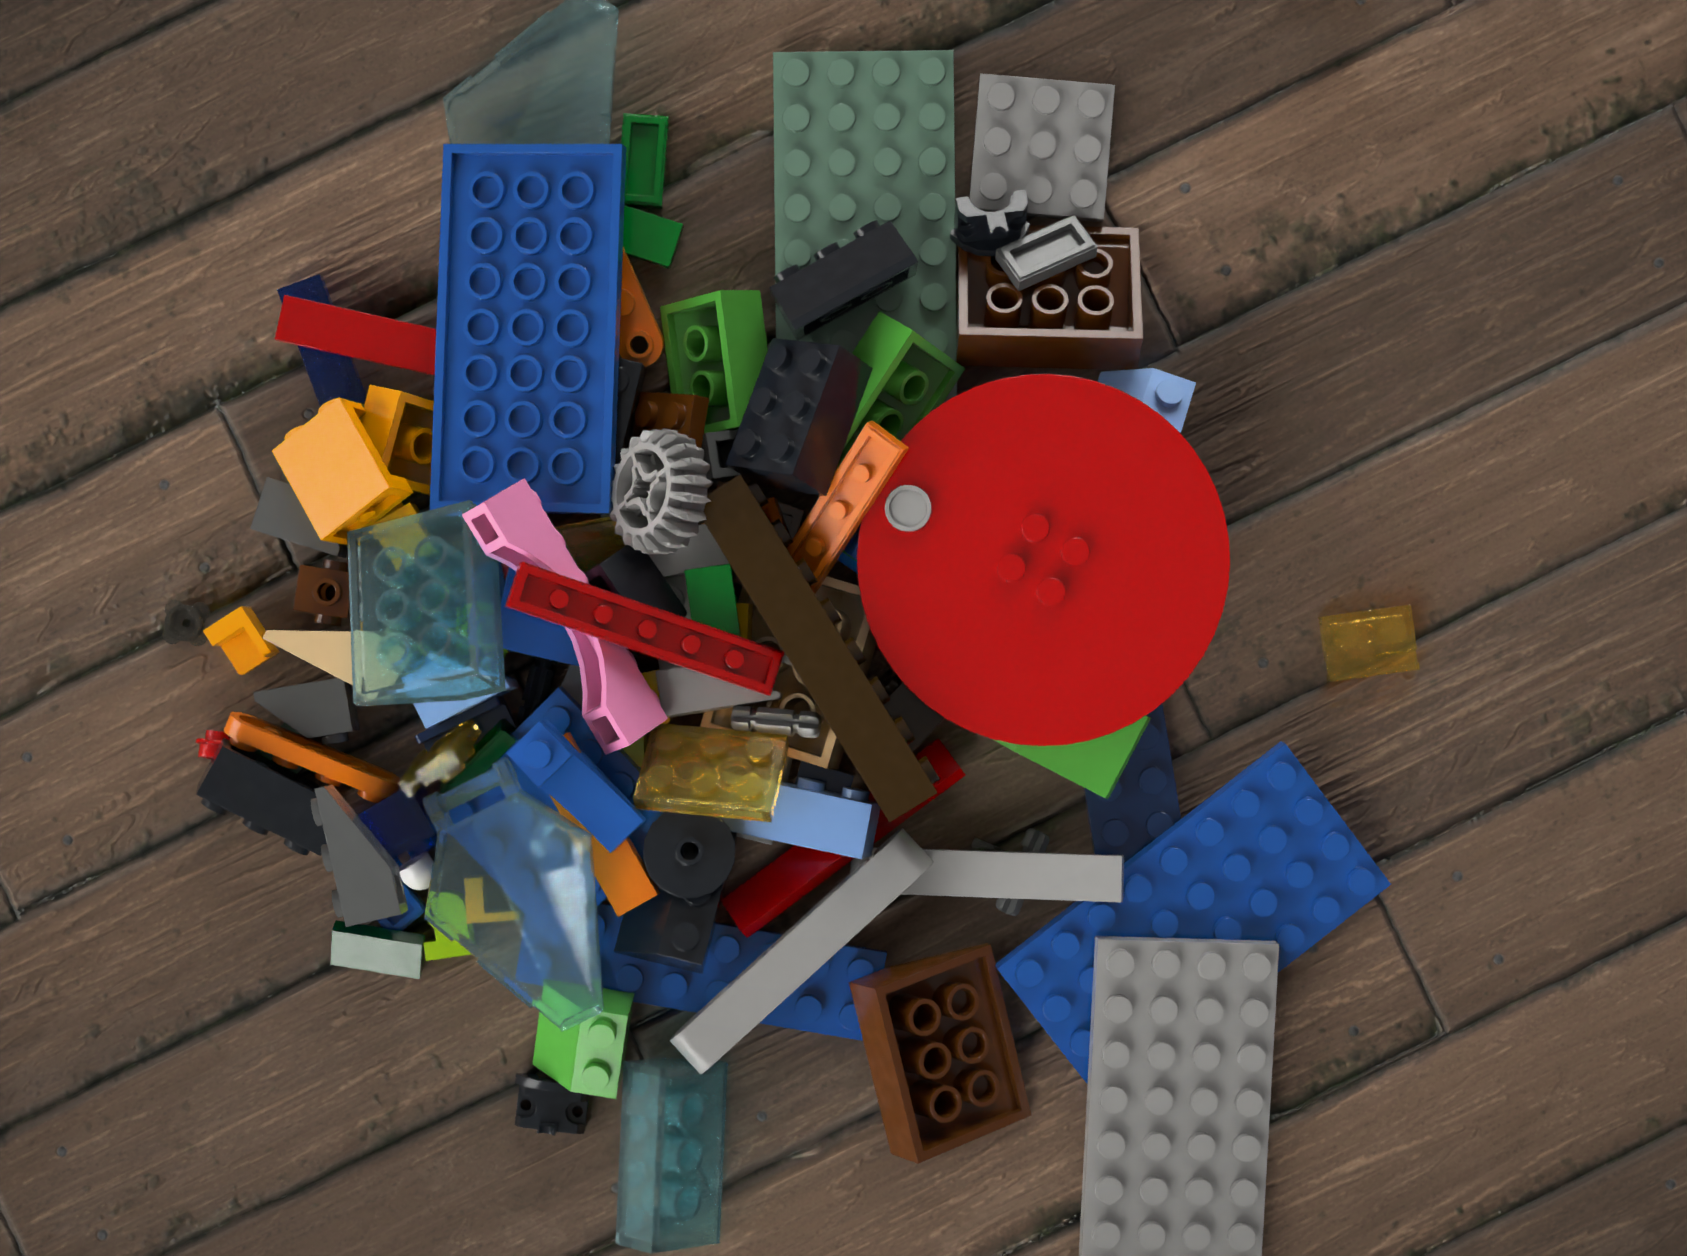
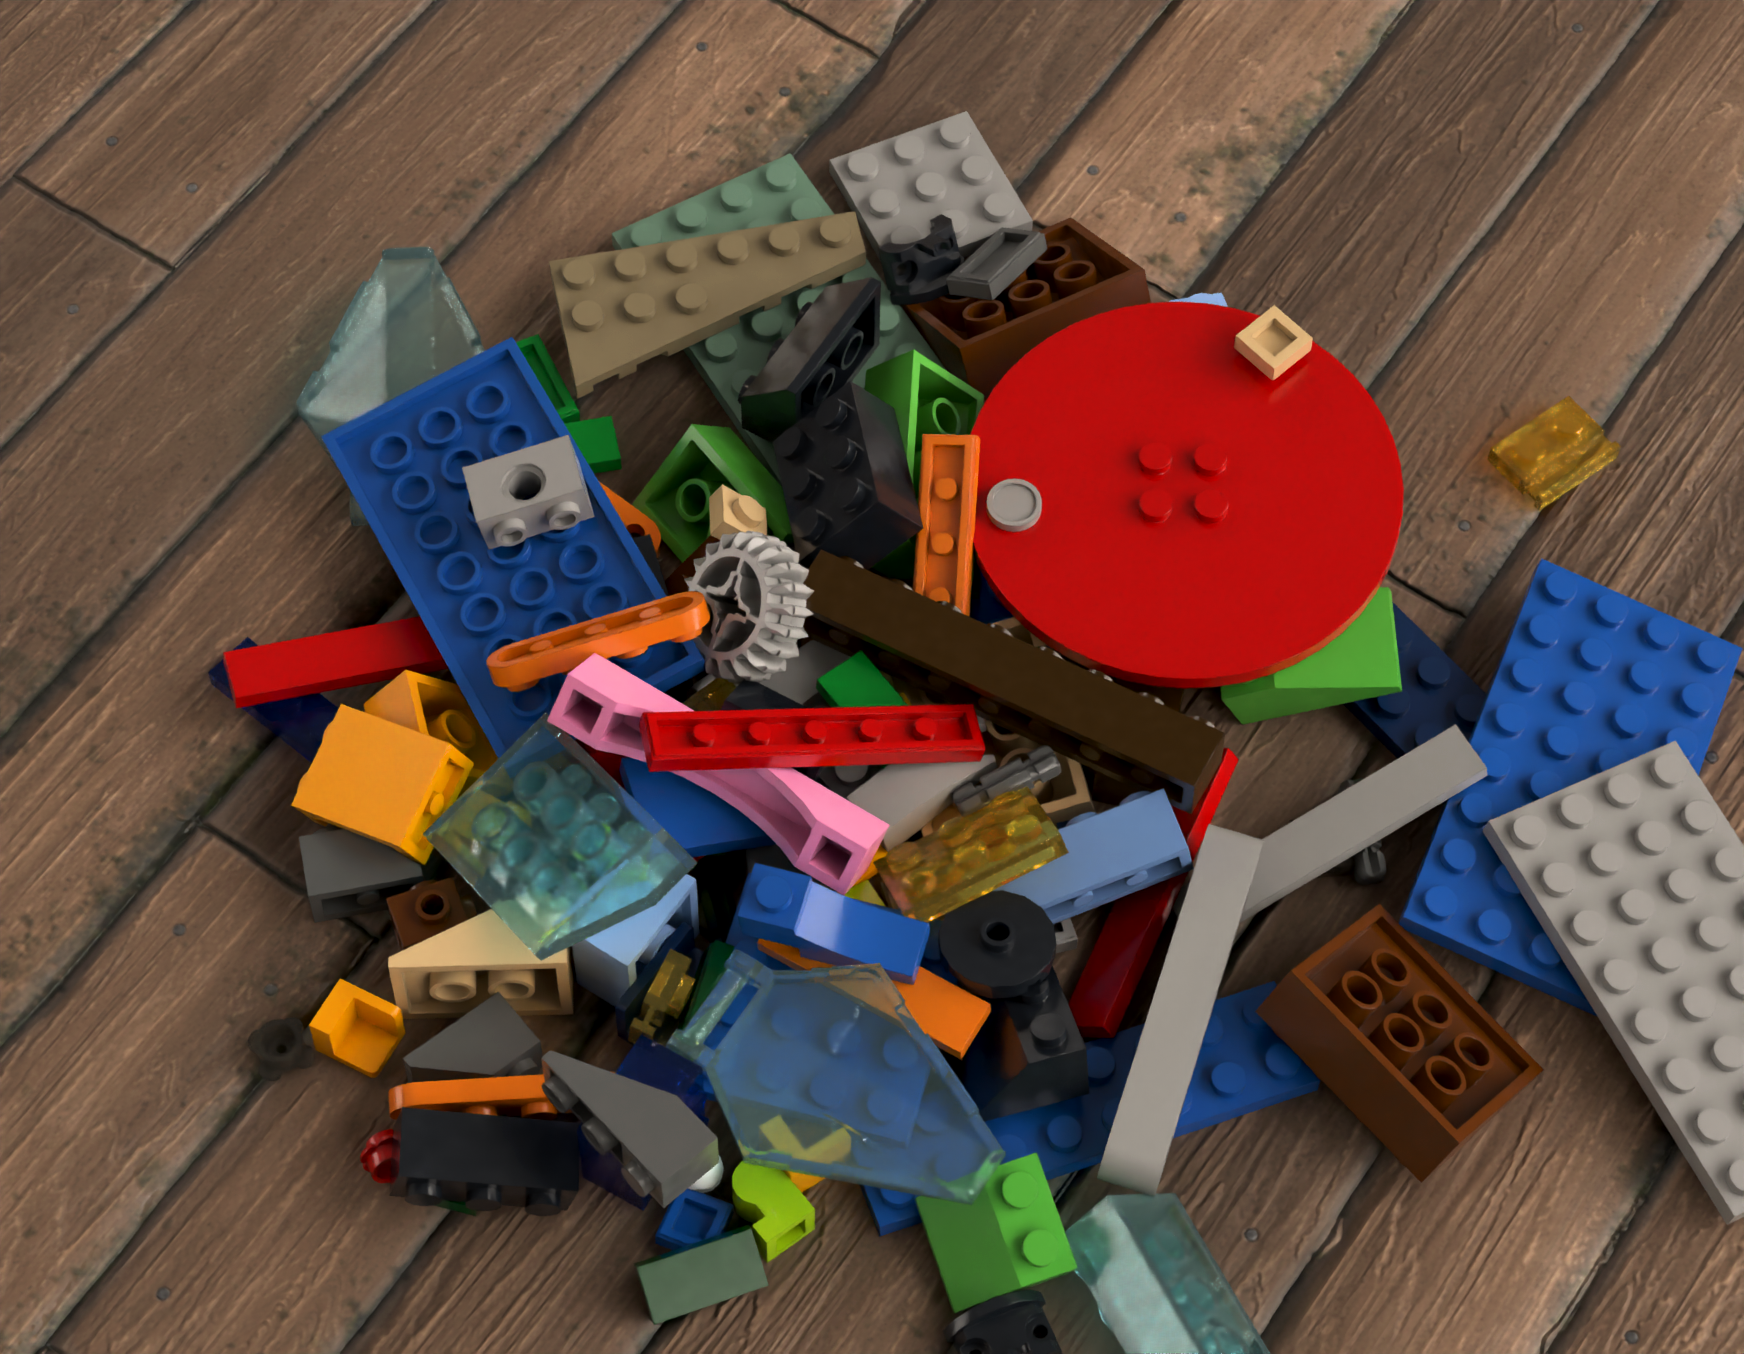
camera: 30 degrees left, 30 degrees down
(530, 290) = (504, 481): none -> light grey brick
(538, 460) = (611, 635): none -> orange plate
(702, 403) = (735, 513): none -> tan plate
(778, 144) = (675, 293): none -> dark tan wing
(1180, 486) = (1273, 342): none -> tan plate

